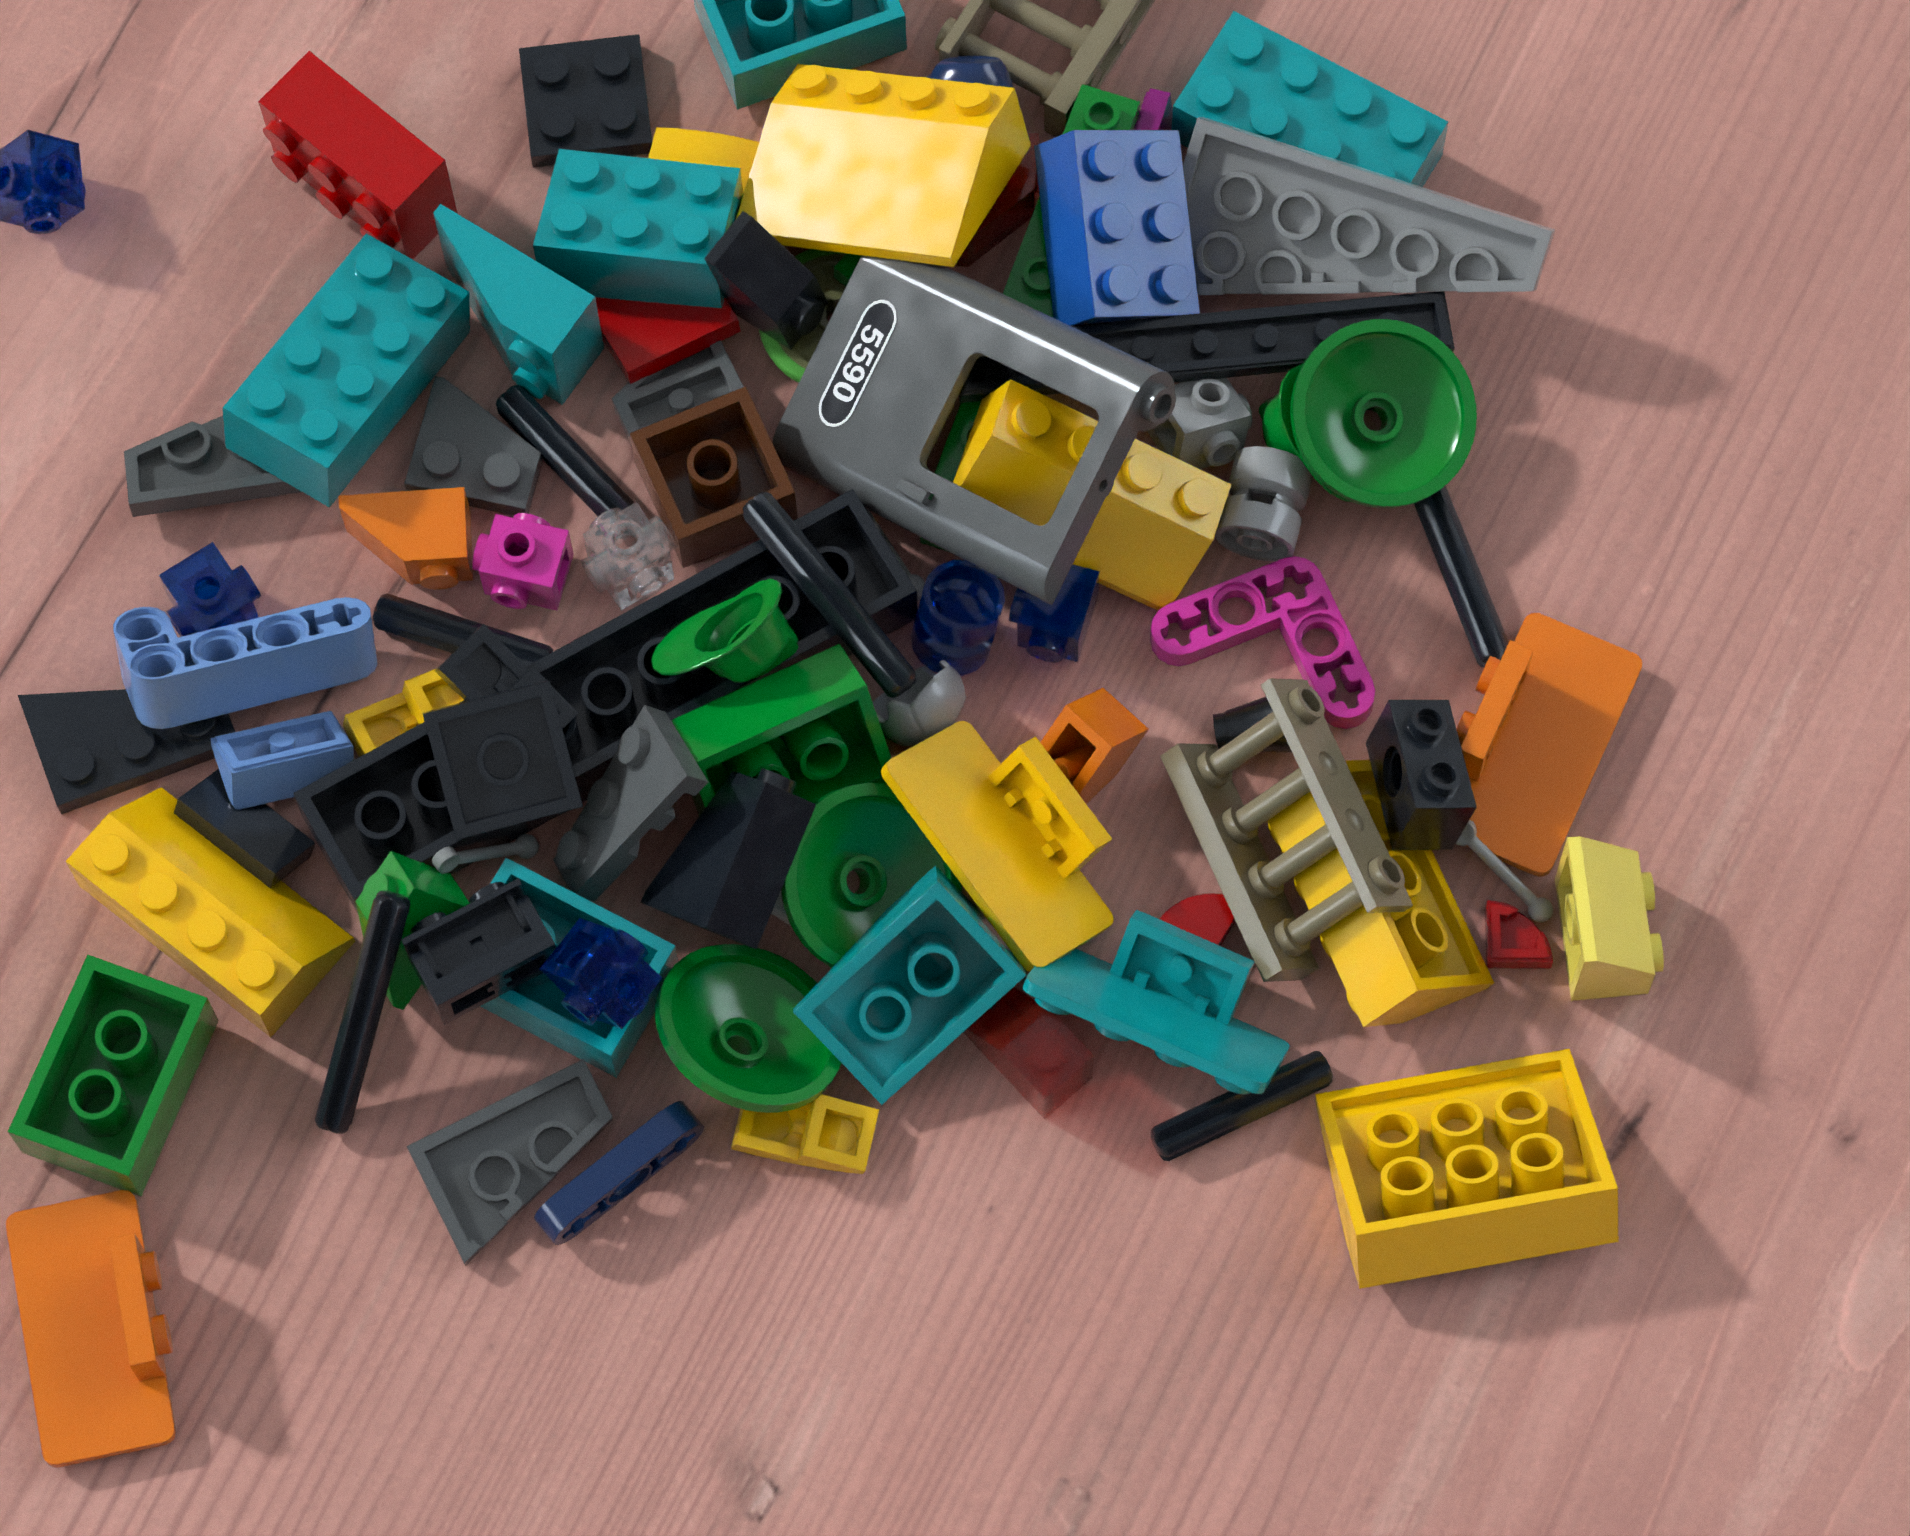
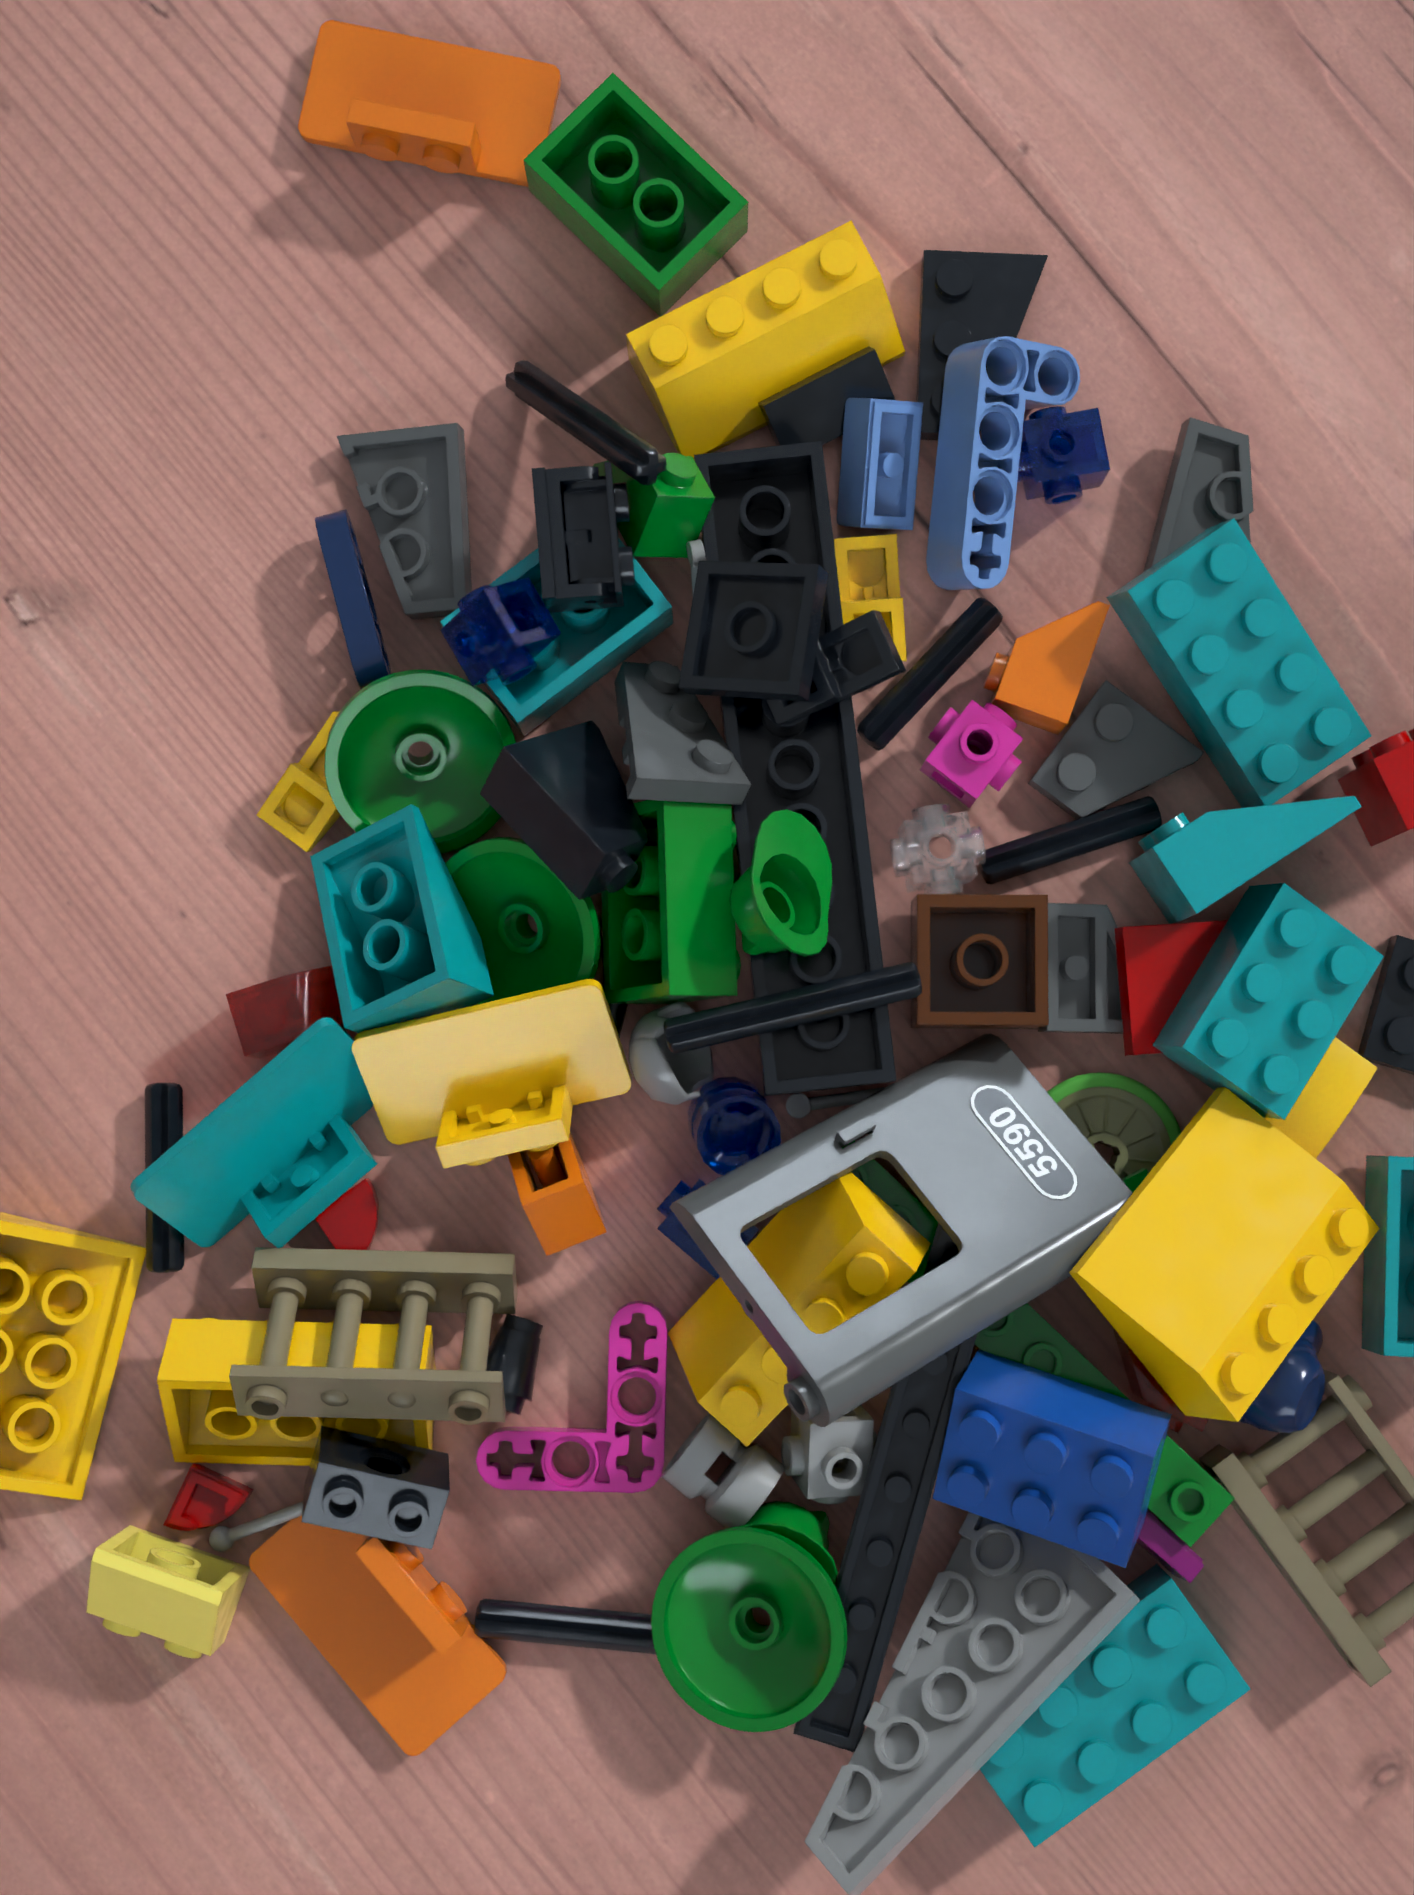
camera: 115 degrees right, 15 degrees up
(766, 282) = (1150, 1092): black slope -> none

